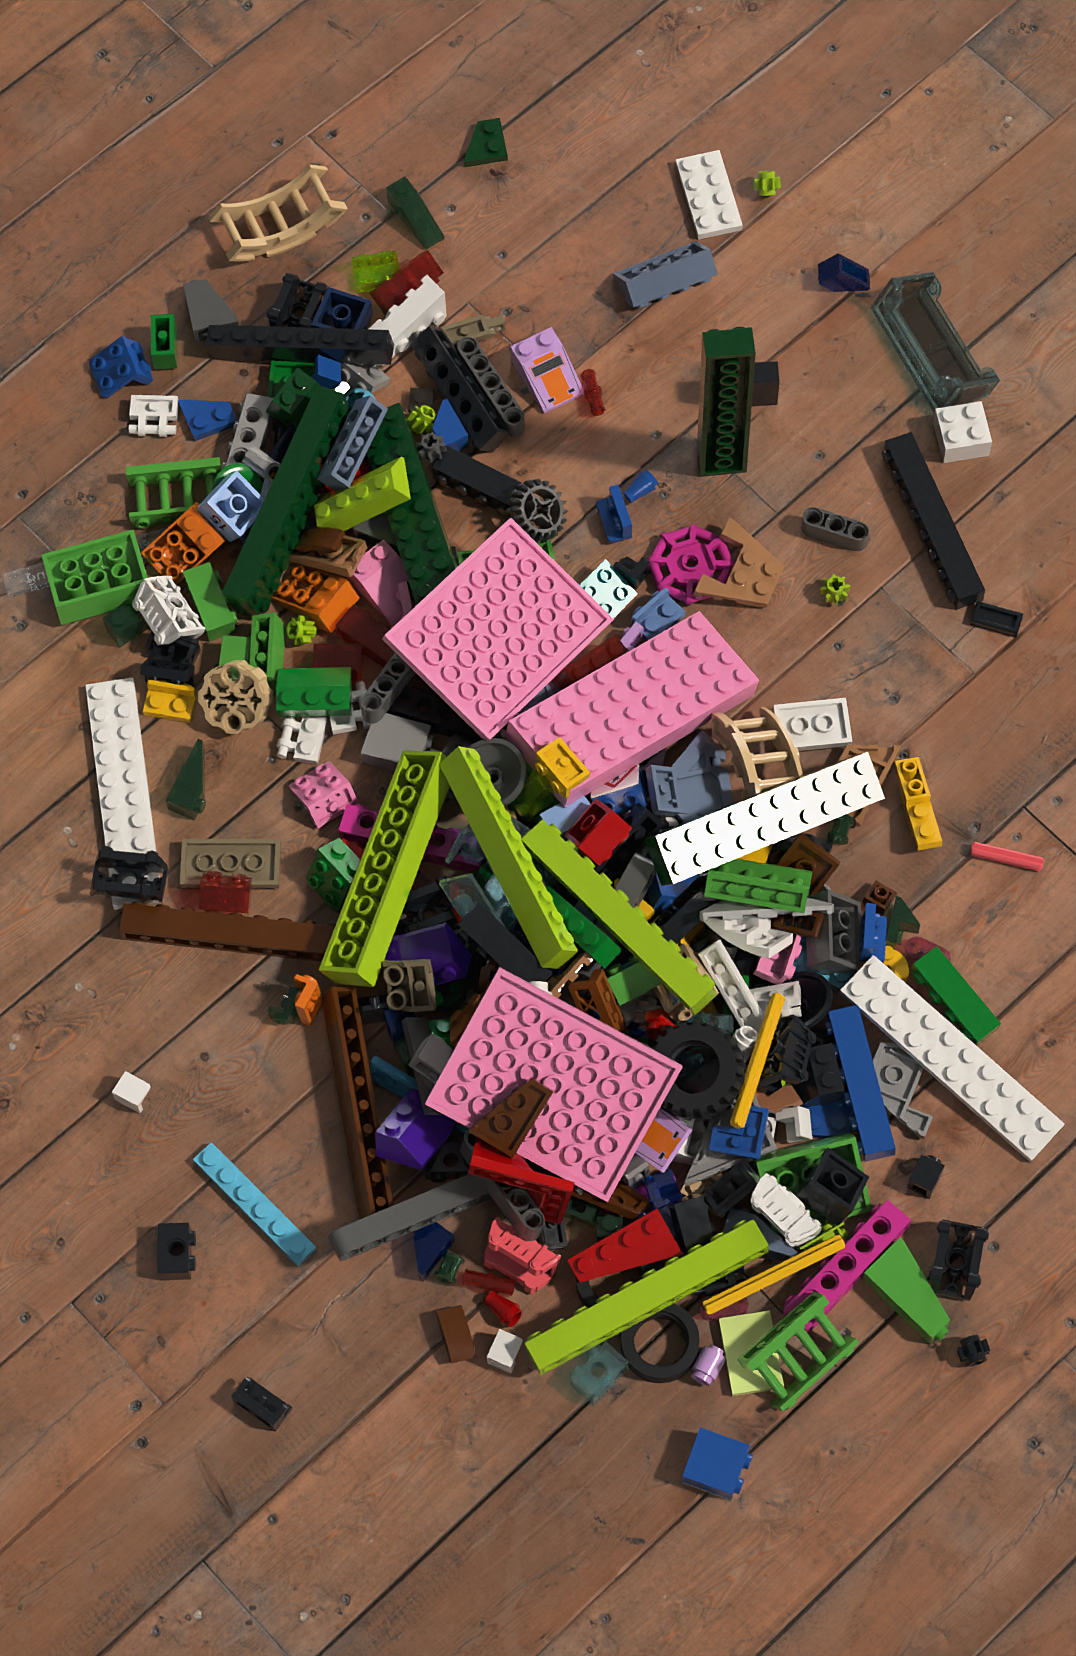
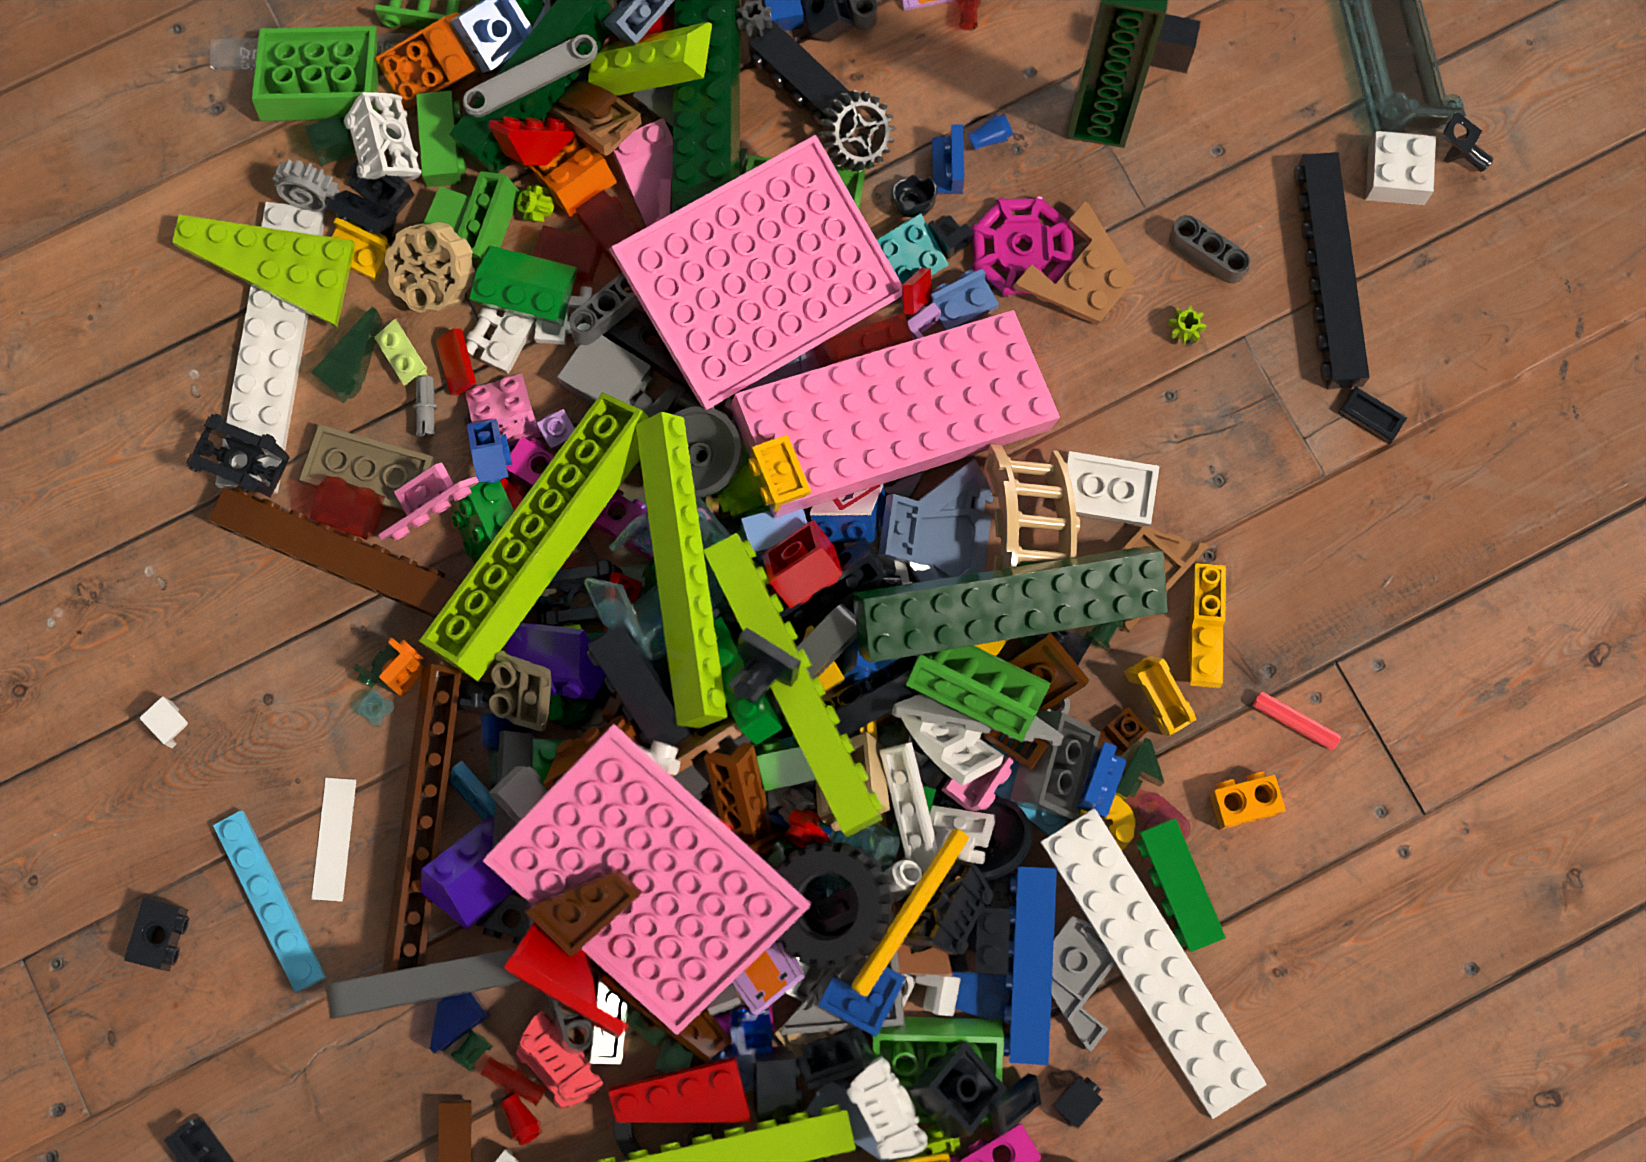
camera: 15 degrees right, 10 degrees up
(116, 662) = (304, 185): none -> light grey gear
(116, 726) = (287, 264): none -> lime wing
(230, 768) = (400, 352): none -> yellowish green hinge
(261, 804) = (425, 406): none -> light grey axle
(275, 531) = (530, 75): none -> light grey piece
(275, 764) = (456, 361): none -> red tile
(285, 865) = (426, 495): none -> bright pink bracket
(287, 580) = (531, 140): none -> red slope
(290, 1031) = (366, 707): none -> clear light blue plate
(290, 1146) = (334, 839): none -> white sticker
(326, 819) = (489, 451): none -> blue brick
(371, 792) = (556, 428): none -> lavender bracket
(594, 904) = (764, 667): none -> black piece
(595, 548) = (914, 196): none -> black hair
(620, 616) = (917, 291): none -> red tile
(879, 1187) = (1015, 1104): none -> black tile
(900, 862) = (1161, 690): none -> yellow piece
(991, 928) = (1249, 808): none -> light orange brick
(1006, 402) = (1464, 145): none -> black bracket

